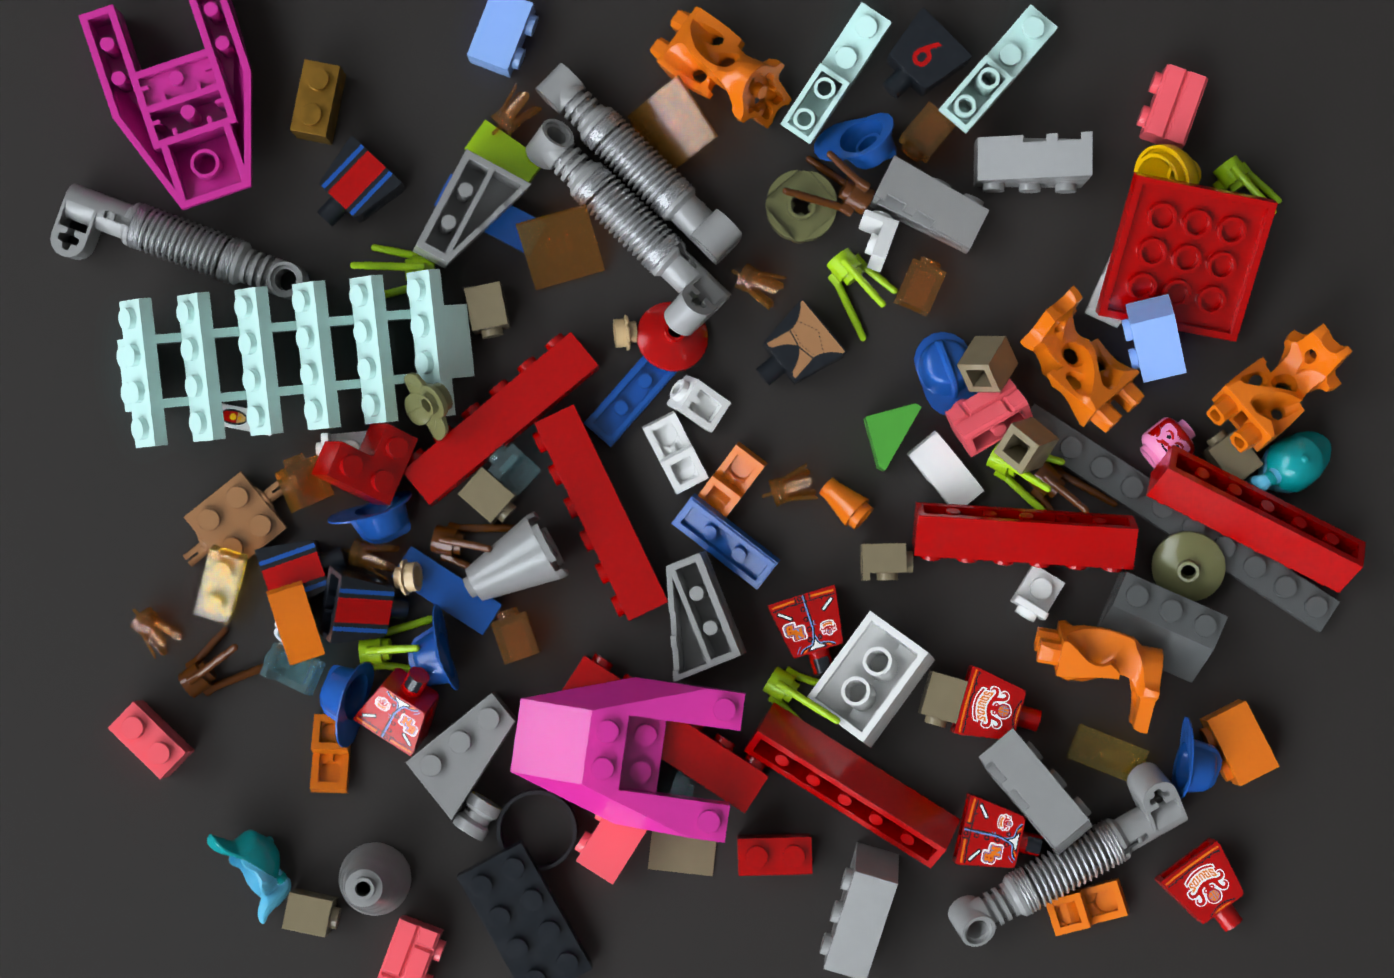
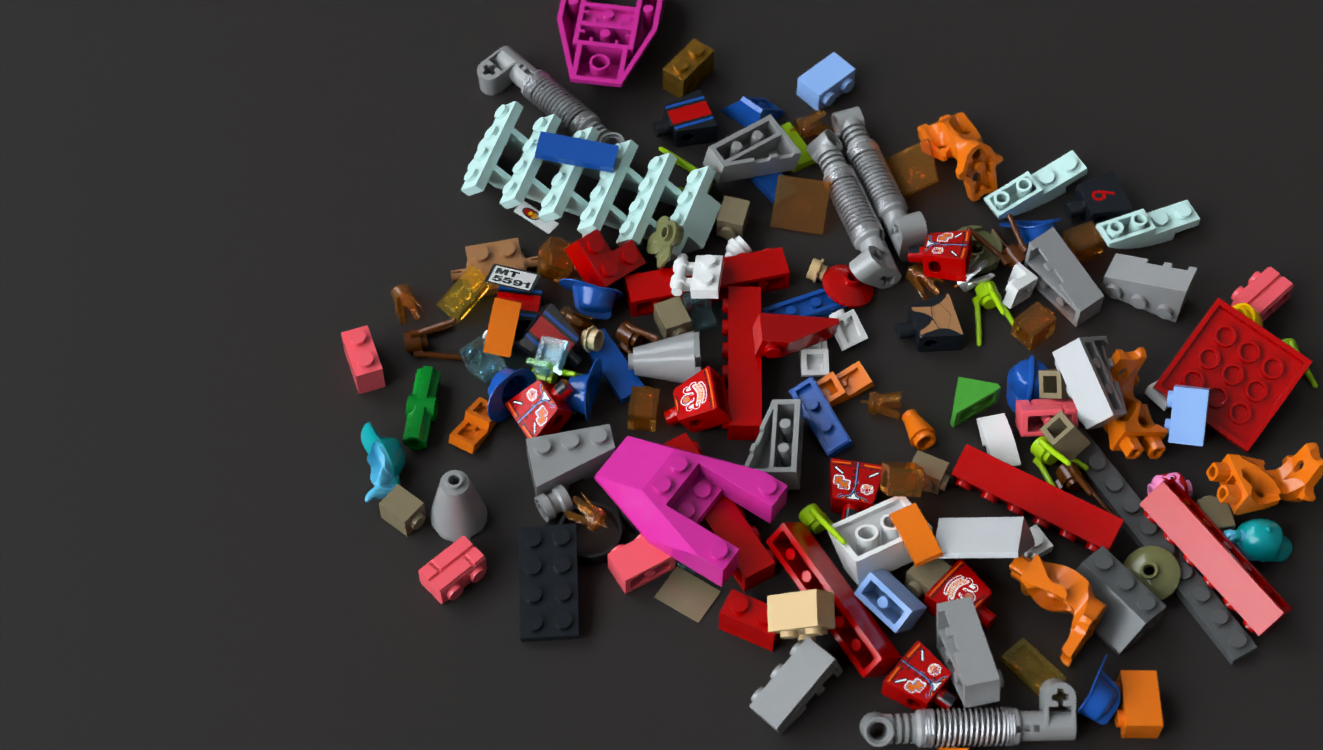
camera: 25 degrees right, 30 degrees down
(256, 338) = (576, 152): none -> blue tile
(256, 766) = (421, 408): none -> green piece
(268, 542) = (512, 278): none -> sticker
(376, 644) = (549, 356): none -> clear light blue bracket
(435, 124) = (751, 110): none -> blue slope
(504, 433) = (705, 274): none -> white plate
(515, 350) = (737, 246): none -> white plate
(527, 823) = (594, 515): none -> clear orange piece
(581, 604) = (700, 402): none -> red torso
(637, 467) = (785, 334): none -> red slope
(776, 250) = (944, 255): none -> red torso
(812, 260) = (972, 282): none -> flat silver piece
(835, 845) = (801, 614): none -> tan brick
(865, 601) = (902, 479): none -> clear orange brick
(915, 673) = (916, 535): none -> orange slope
(917, 755) = (890, 600): none -> light blue brick
(993, 646) = (984, 537): none -> slope
(1029, 366) = (1090, 381): none -> wedge

